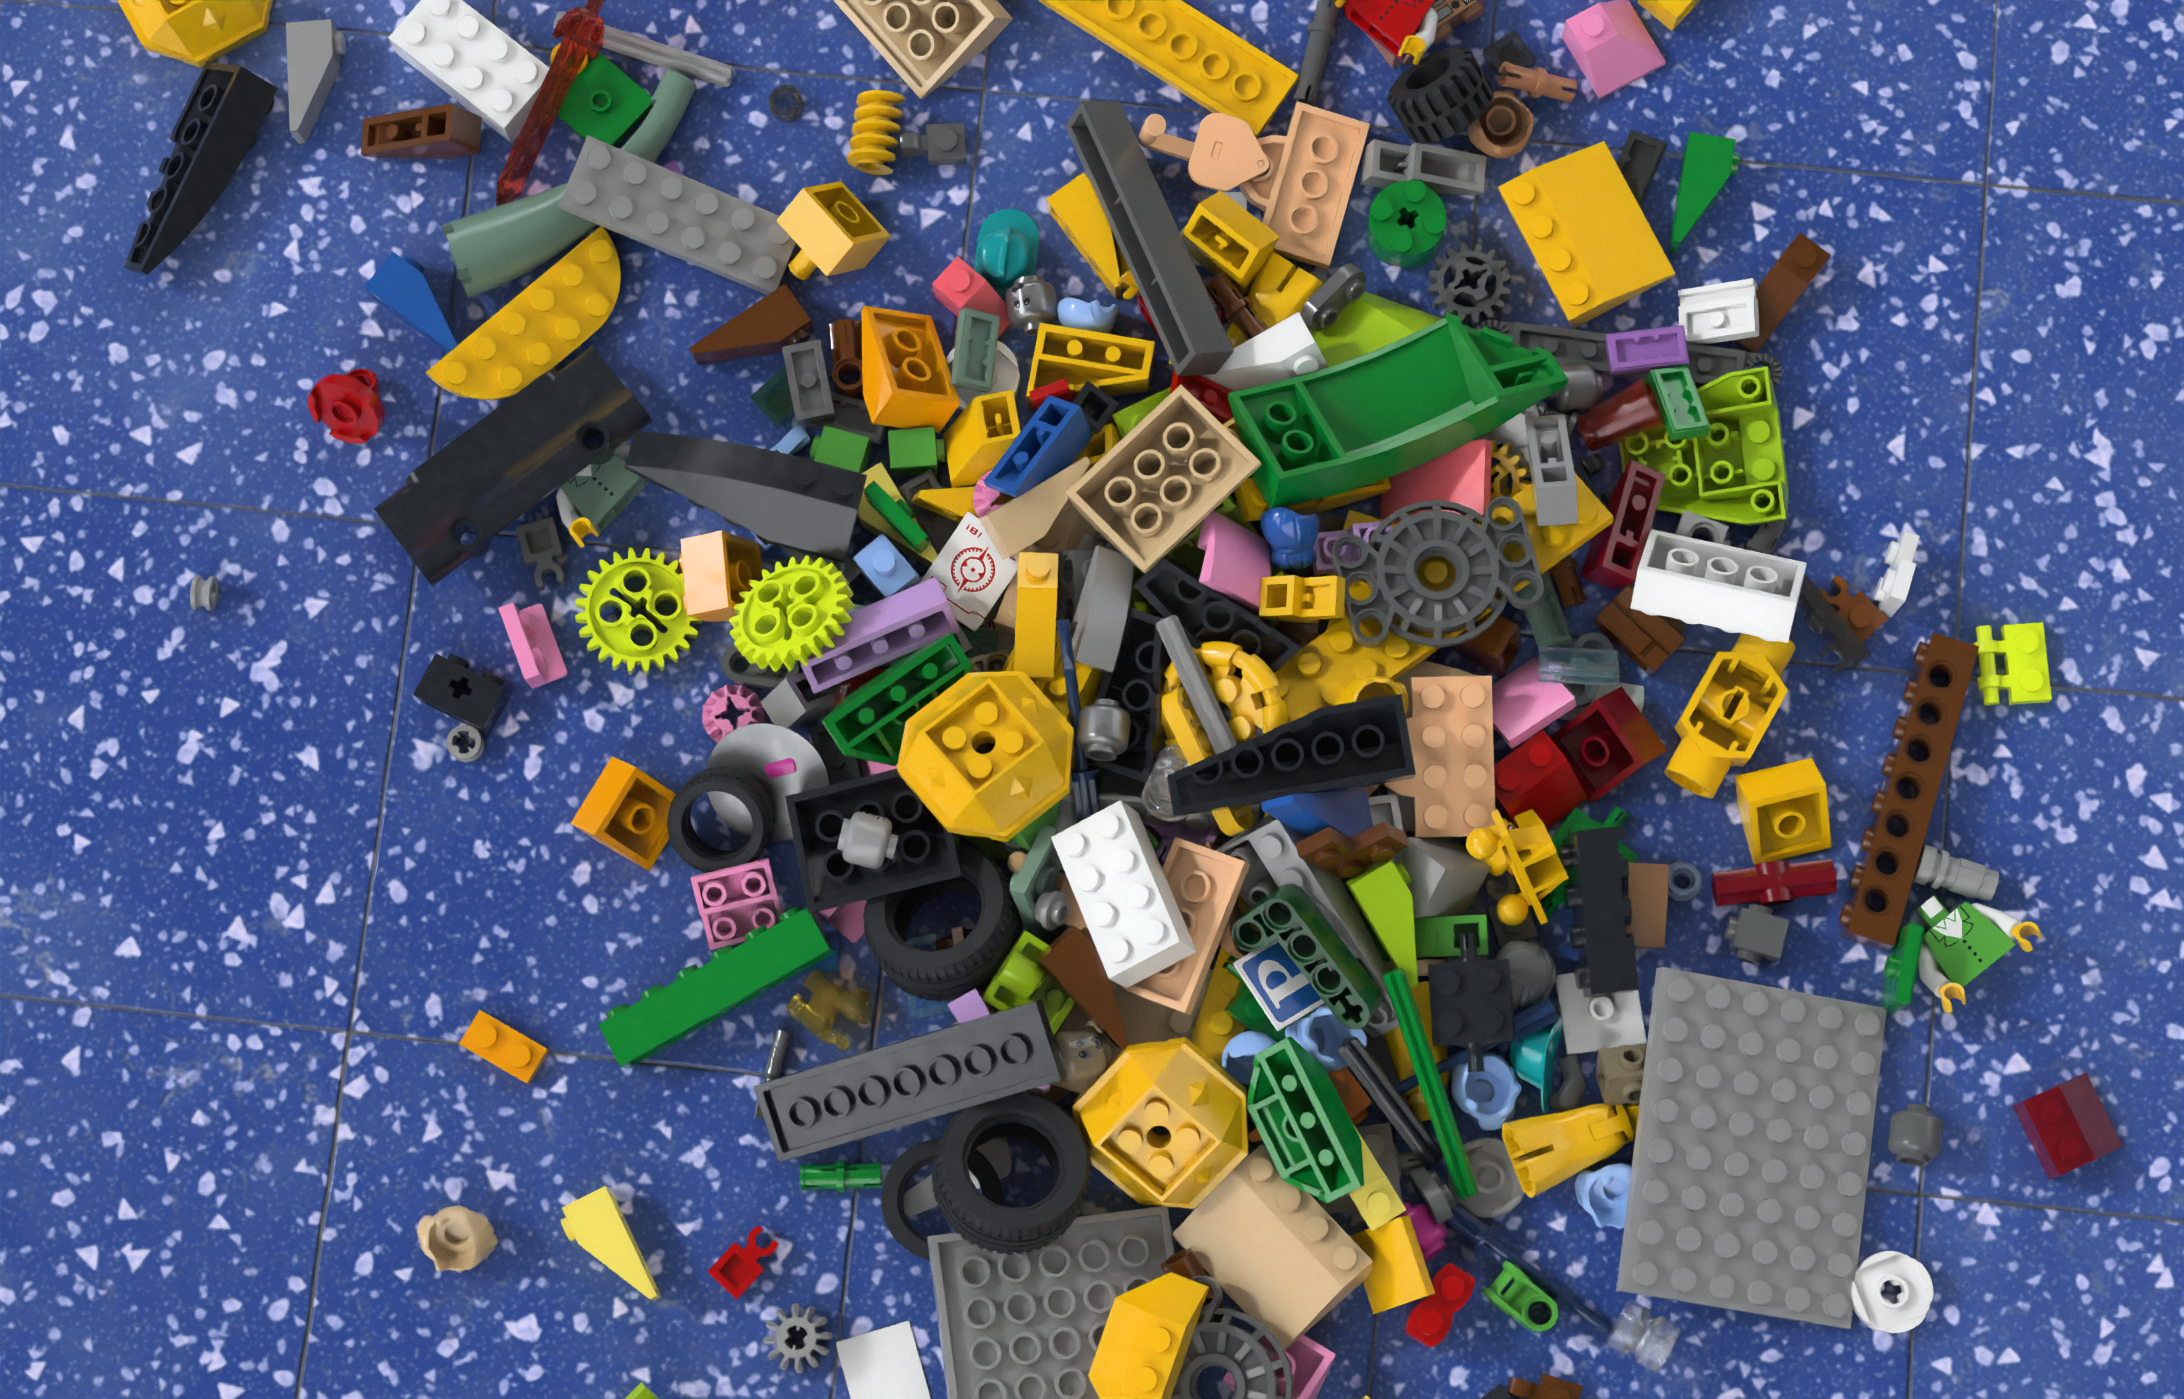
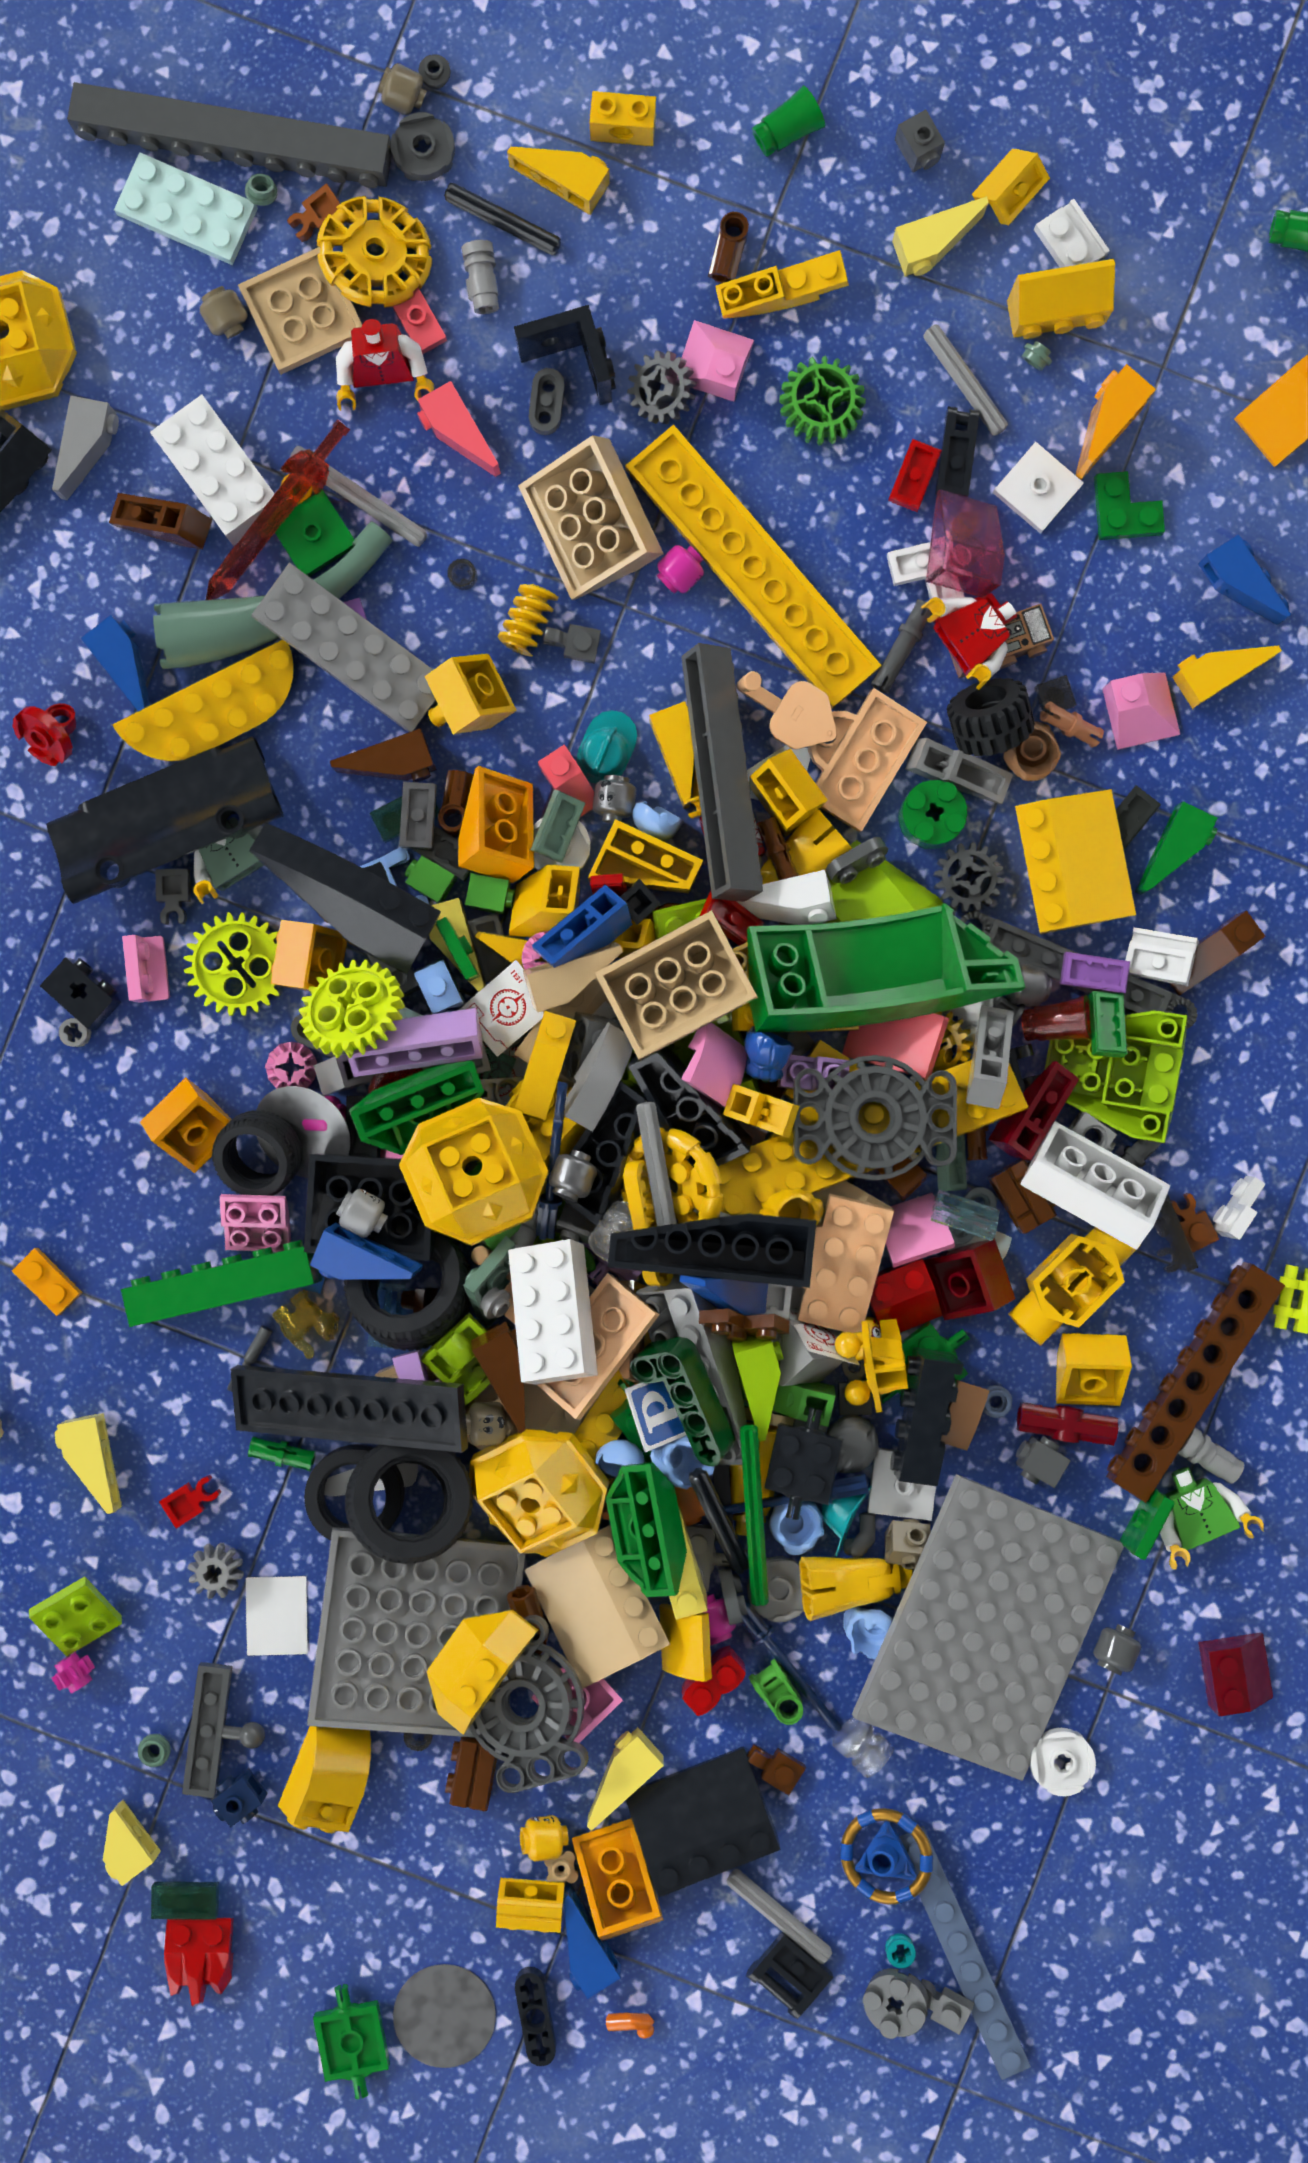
camera: 10 degrees right, 10 degrees up
(863, 893) = (350, 1257): none -> blue slope
(1037, 30) = (680, 569): none -> dark pink head
(1448, 847) = (819, 1338): none -> white sticker

